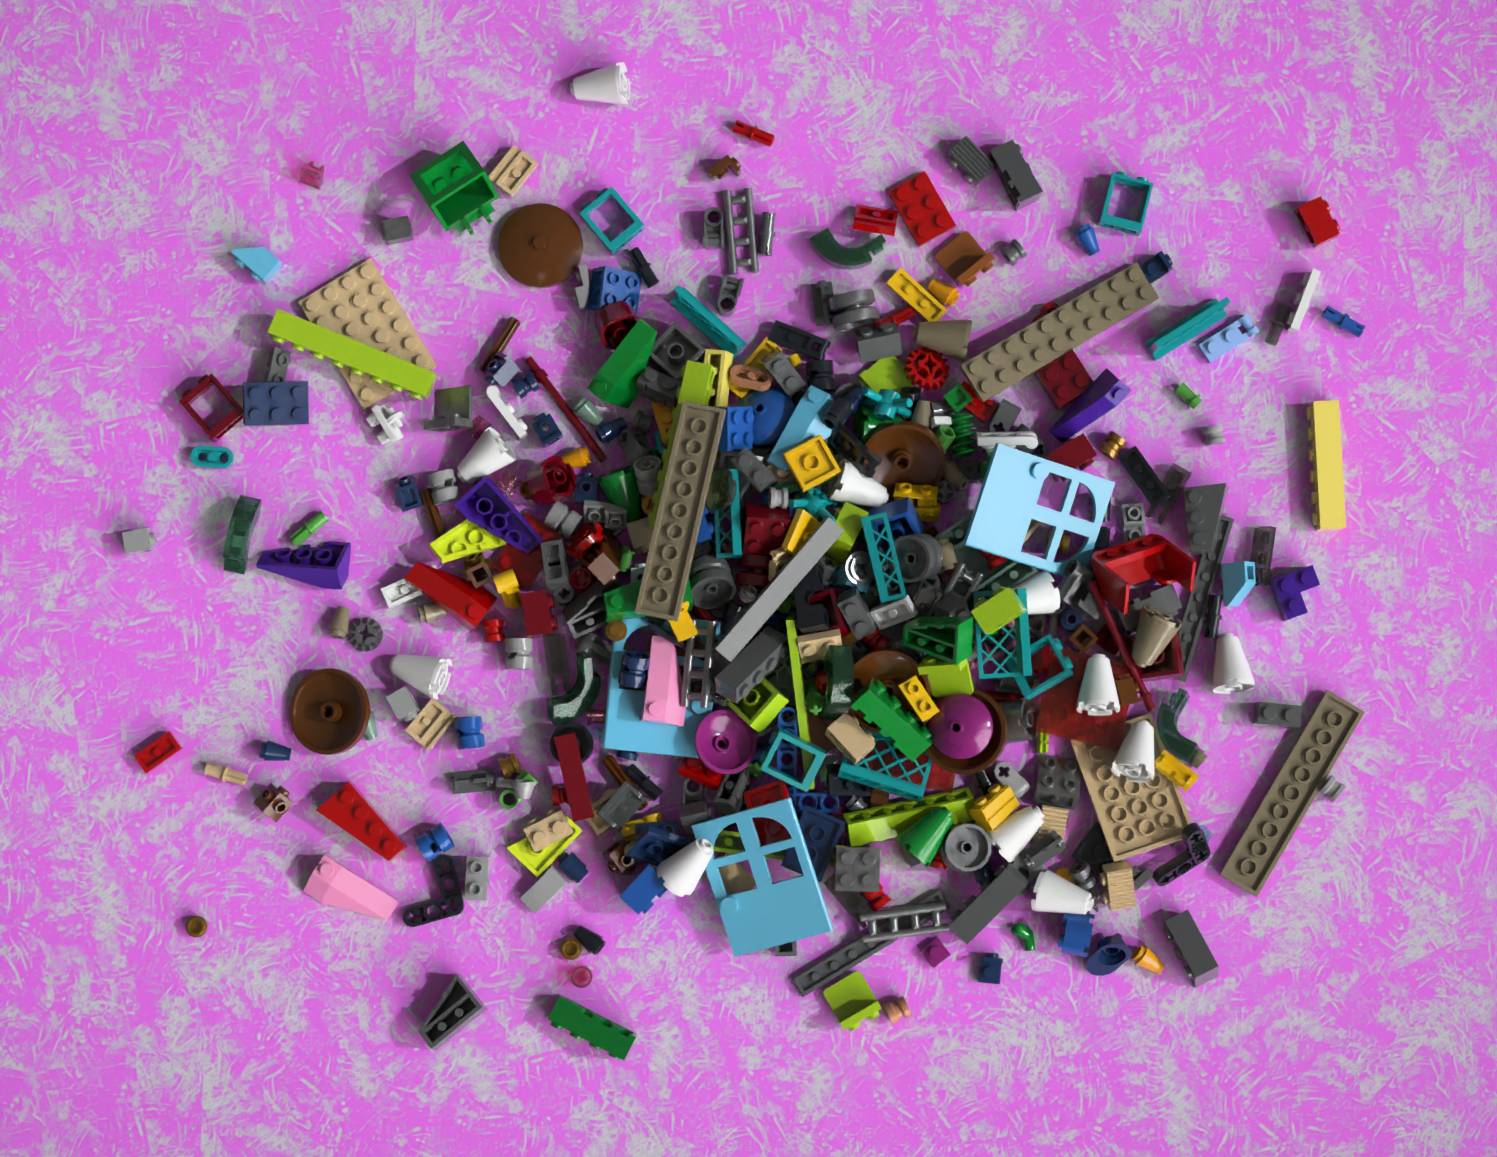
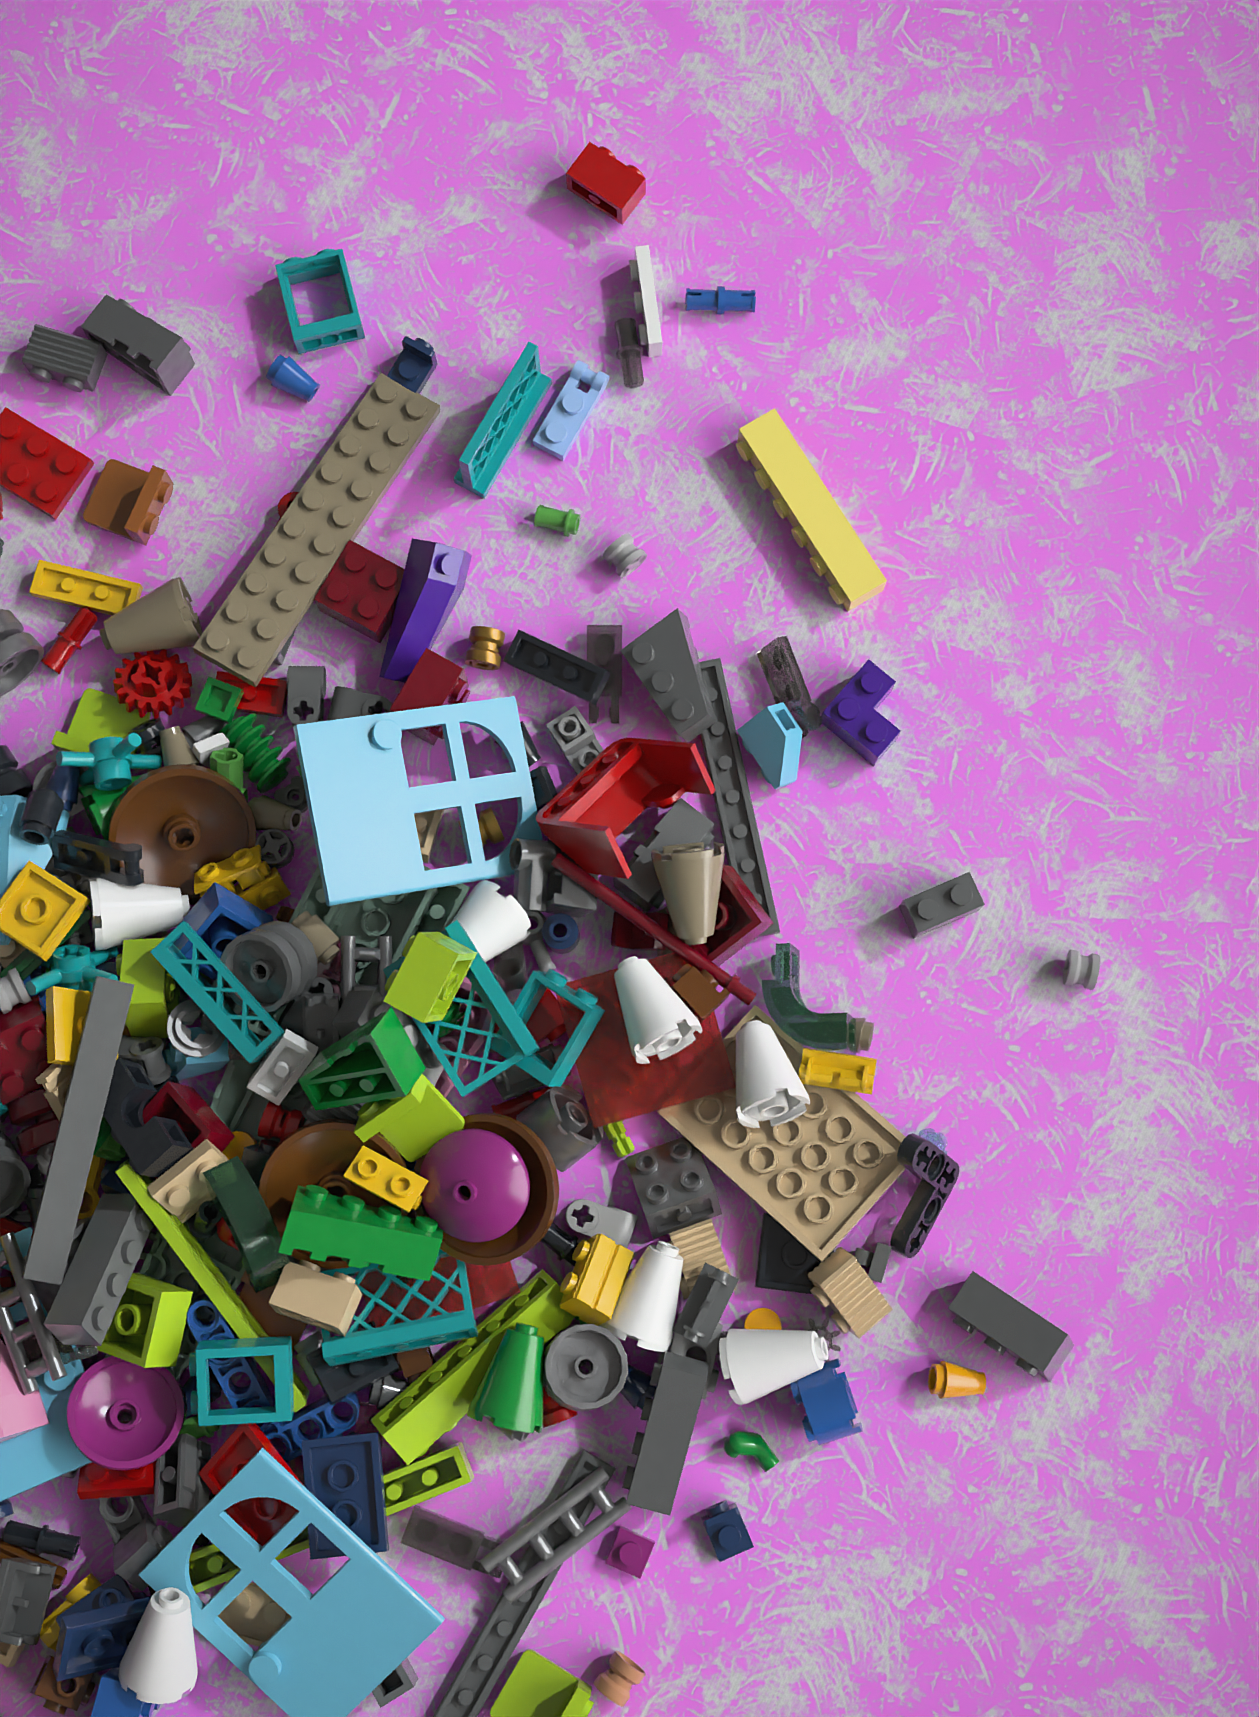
camera: 25 degrees left, 5 degrees down
(813, 698) = (230, 1267): bright green axle -> none
(856, 612) = (225, 1099): dark grey brick -> none
(857, 869) = (433, 1498): flat silver brick -> none
(878, 342) = (59, 682): dark grey brick -> none
(879, 902) = (485, 1513): red wheel -> none
(943, 292) = (123, 562): light orange cone -> none
(992, 561) = (395, 906): red wheel -> none
(1010, 439) = (352, 701): white plate -> none
(1013, 252) = (194, 452): dark grey wheel -> none
(1081, 639) = (591, 952): reddish brown brick -> none
(1081, 873) = (784, 1306): dark grey wheel -> none
(1109, 955) = (894, 1408): dark blue piece -> none
(1213, 616) = (768, 813): black pin -> none
(1231, 667) = (834, 873): white cone -> none
(1291, 793) = (1027, 1011): dark tan plate -> none

